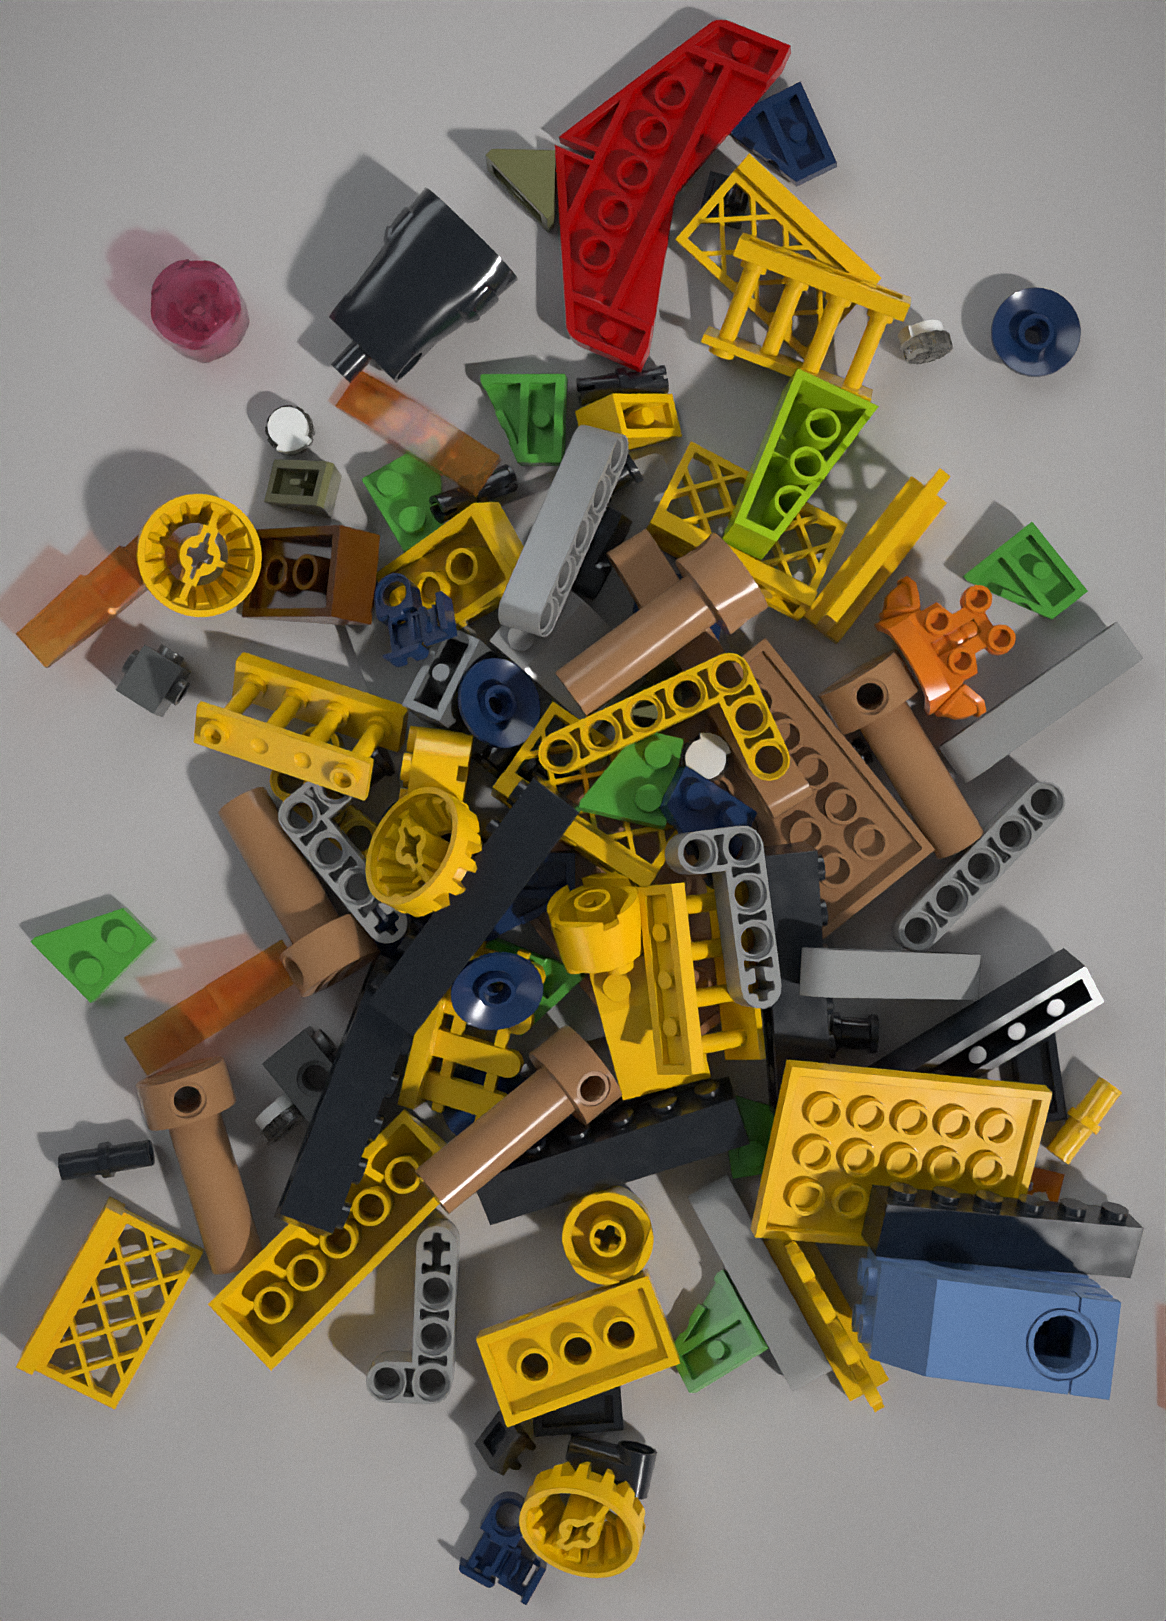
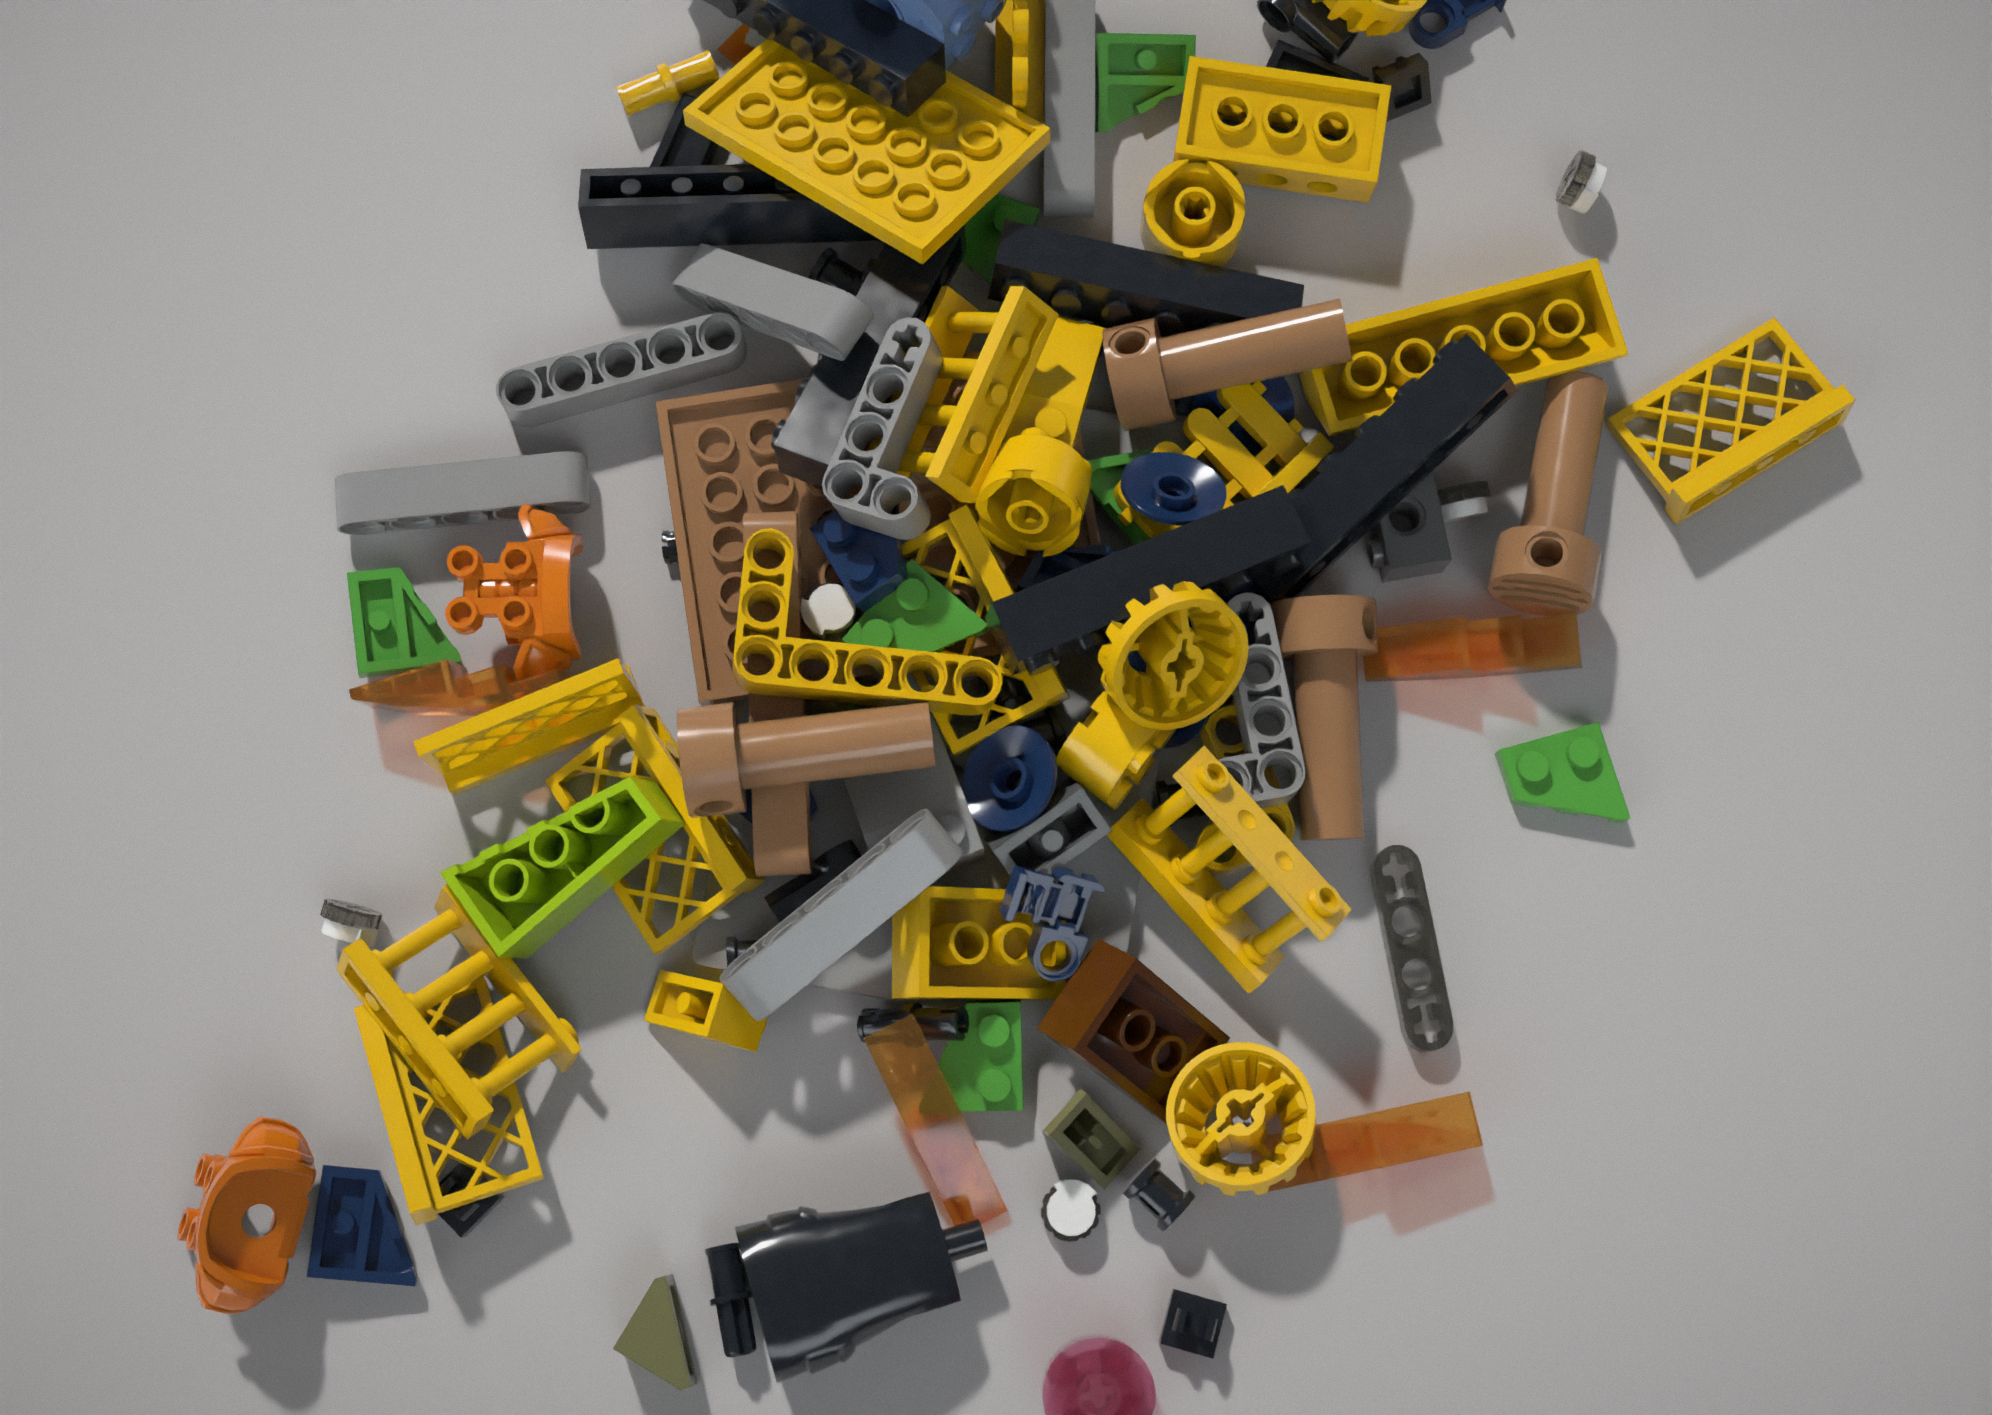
camera: 150 degrees left, 10 degrees down
(106, 1160) = (1661, 558): black pin -> none
(146, 752) = (1418, 947): none -> clear smoke beam
(154, 679) = (1358, 1018): dark grey brick -> none
(161, 400) = (1192, 1323): none -> black tile
(231, 474) = (1159, 1194): none -> black bush
(320, 1438) = (1581, 182): none -> clear smoke piece
(427, 1310) = (1407, 242): light grey beam -> none
(494, 233) = (731, 1299): none -> black axle
(531, 414) = (804, 1078): bright green wing -> none
(622, 382) = (690, 1056): black pin -> none
(644, 153) = (514, 1299): red wing -> none
(872, 132) = (265, 1167): none -> orange piece
(904, 750) = (626, 579): medium nougat piece -> none
(952, 545) = (449, 689): none -> clear orange slope
(1047, 315) = (207, 862): dark blue dish -> none

